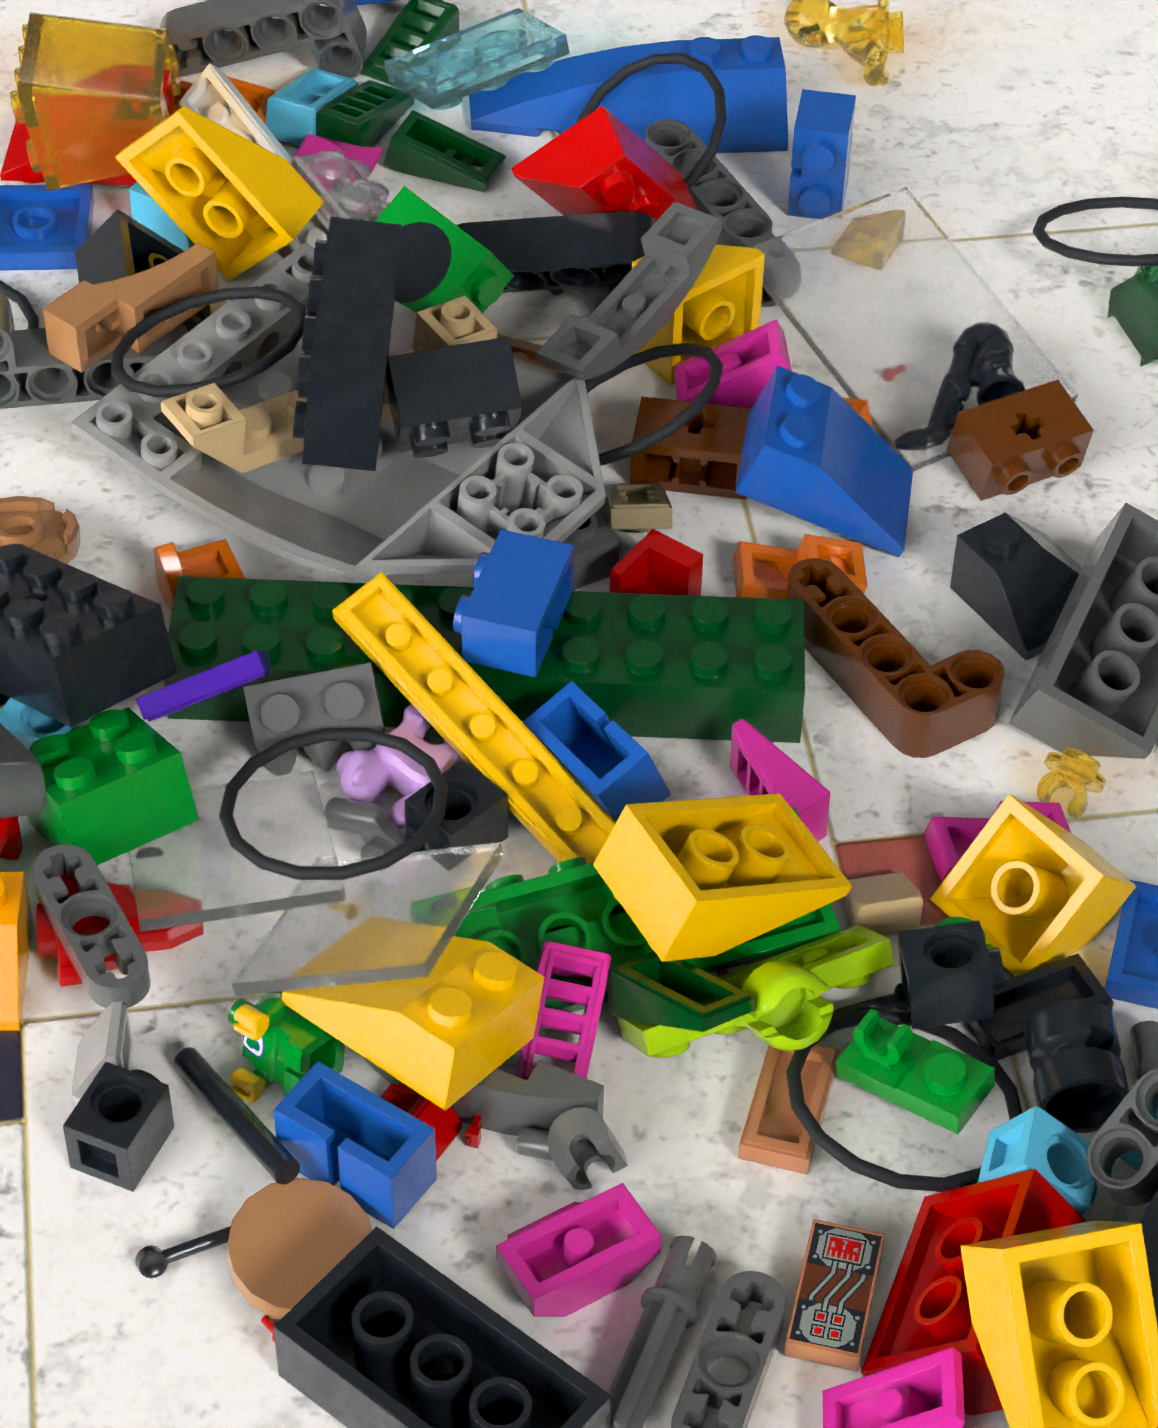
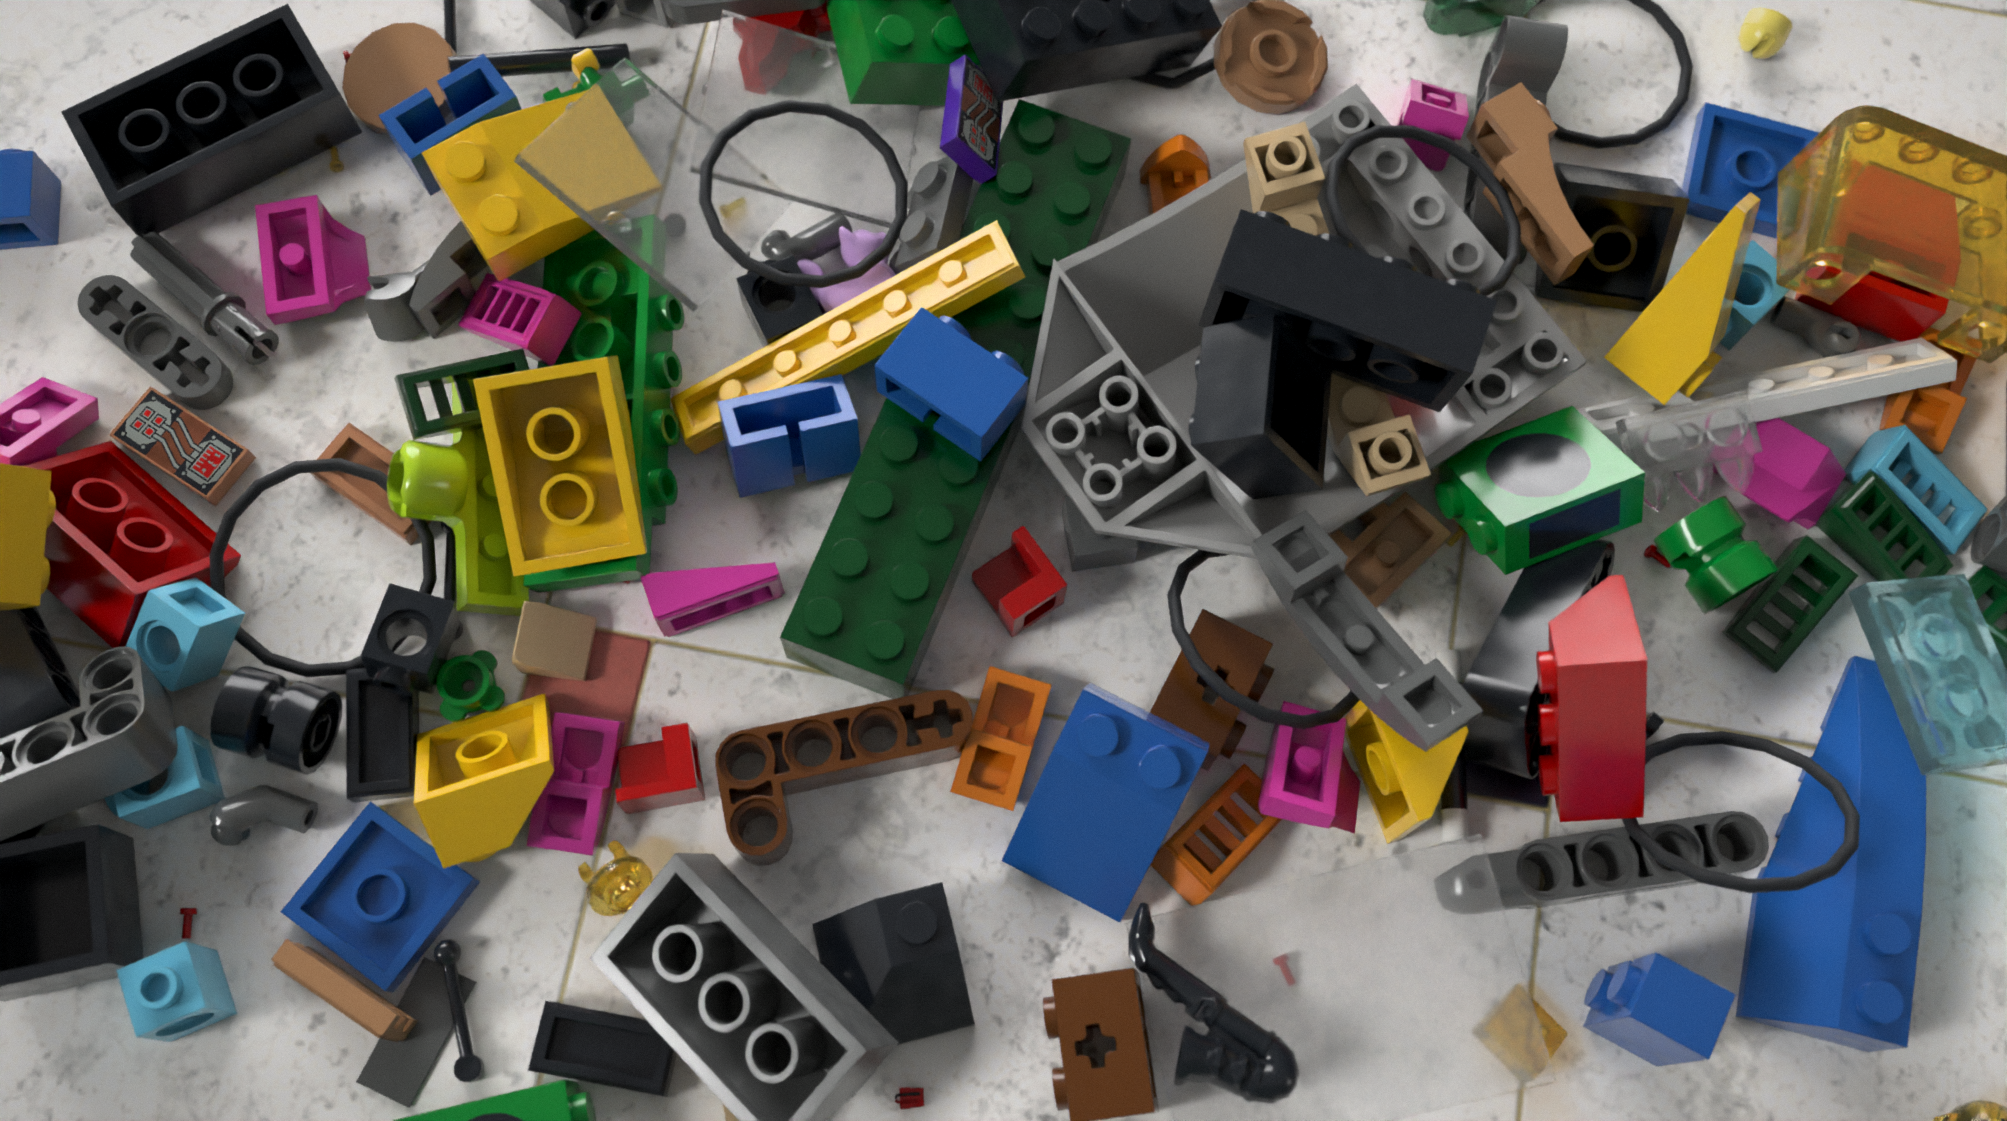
camera: 105 degrees right, 25 degrees up
(44, 417) = (1435, 111): none -> dark pink slope
(438, 174) = (1715, 554): none -> green wheel
(637, 507) = (1118, 593): dark tan plate -> none
(915, 1072) = (332, 578): green plate -> none
(958, 773) = (660, 772): none -> red panel

